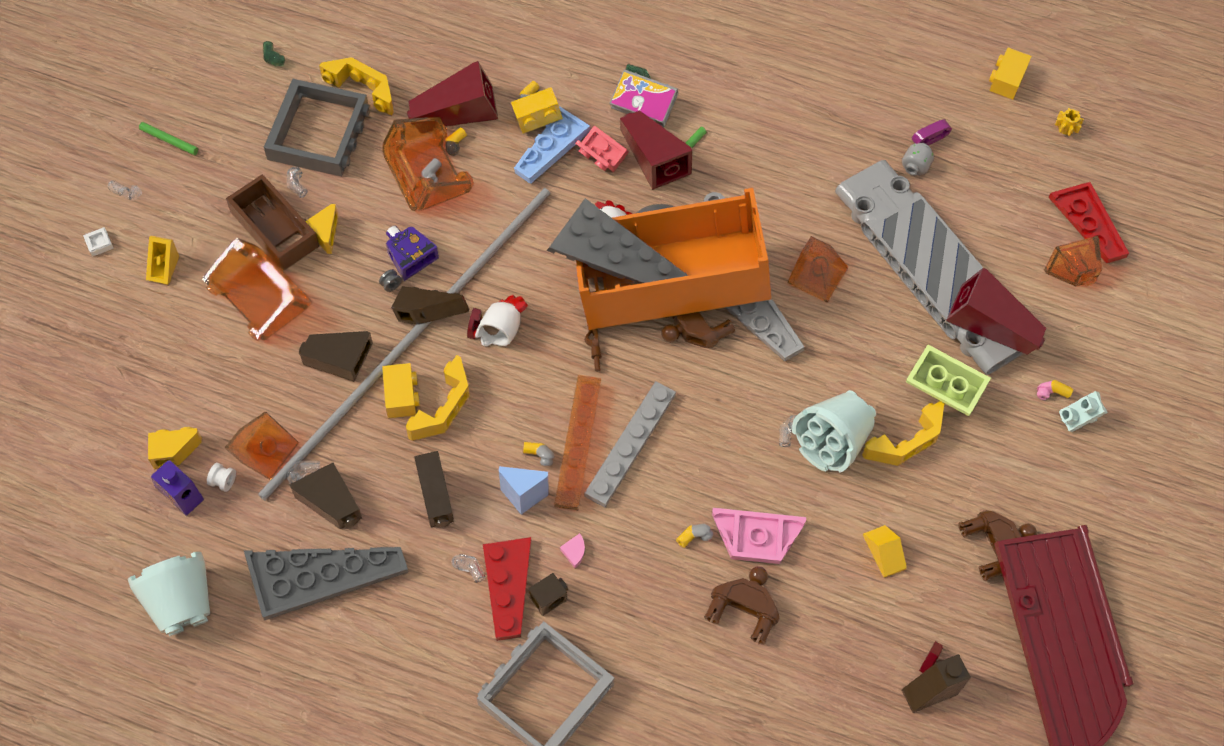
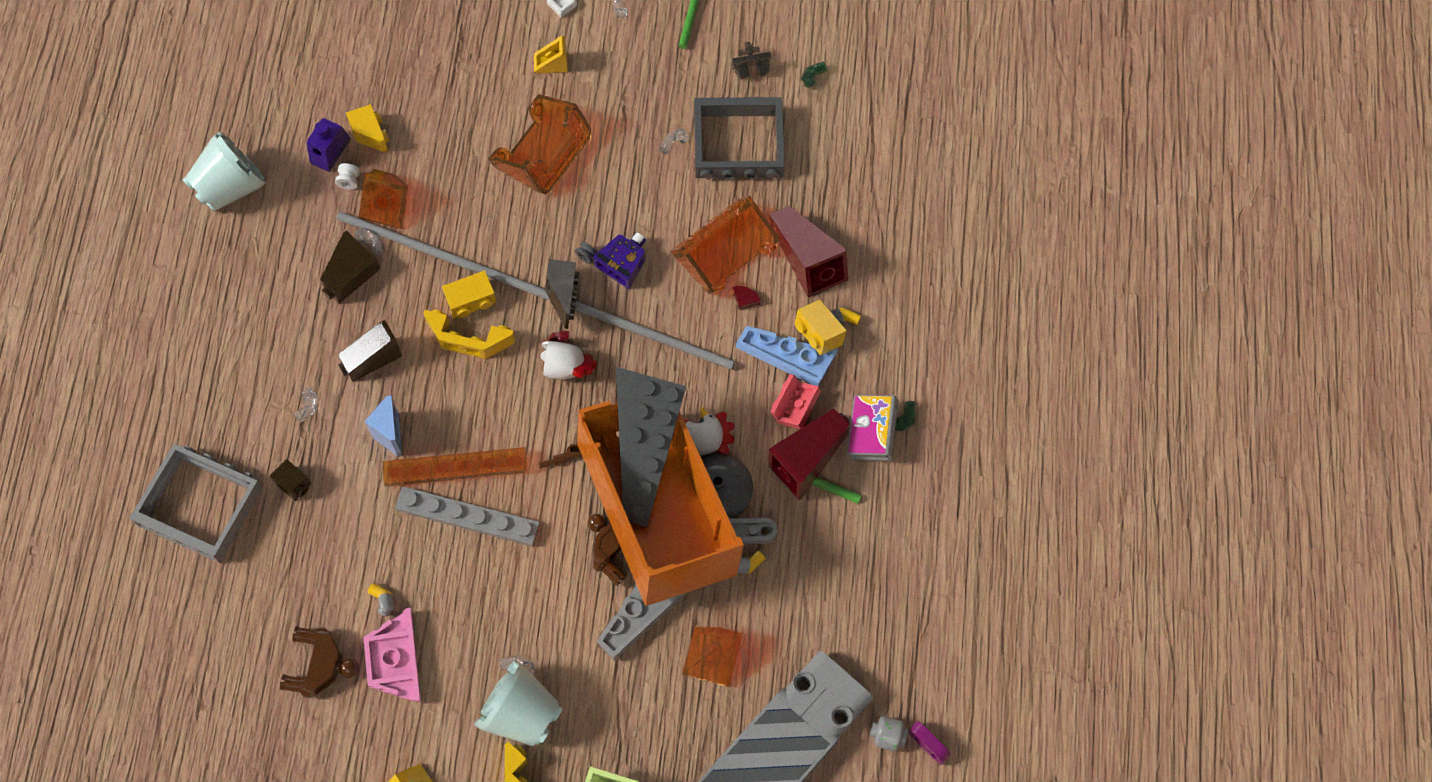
camera: 75 degrees right, 5 degrees up
(240, 106) = (741, 64): none -> clear smoke hips
(276, 224) = (616, 135): reddish brown piece -> none
(309, 576) = (268, 274): dark grey wing -> none
(325, 226) = (626, 179): yellow slope -> none
(337, 71) = (798, 183): yellow slope -> none
(337, 352) = (494, 231): dark brown slope -> none
(430, 170) = (716, 251): light grey arm -> none
(452, 141) = (763, 262): arm -> none
(482, 165) = (745, 297): none -> dark red tile
(507, 581) = (303, 441): red wing -> none
(540, 450) = (437, 438): light grey arm -> none
(574, 550) = (343, 493): bright pink tile -> none

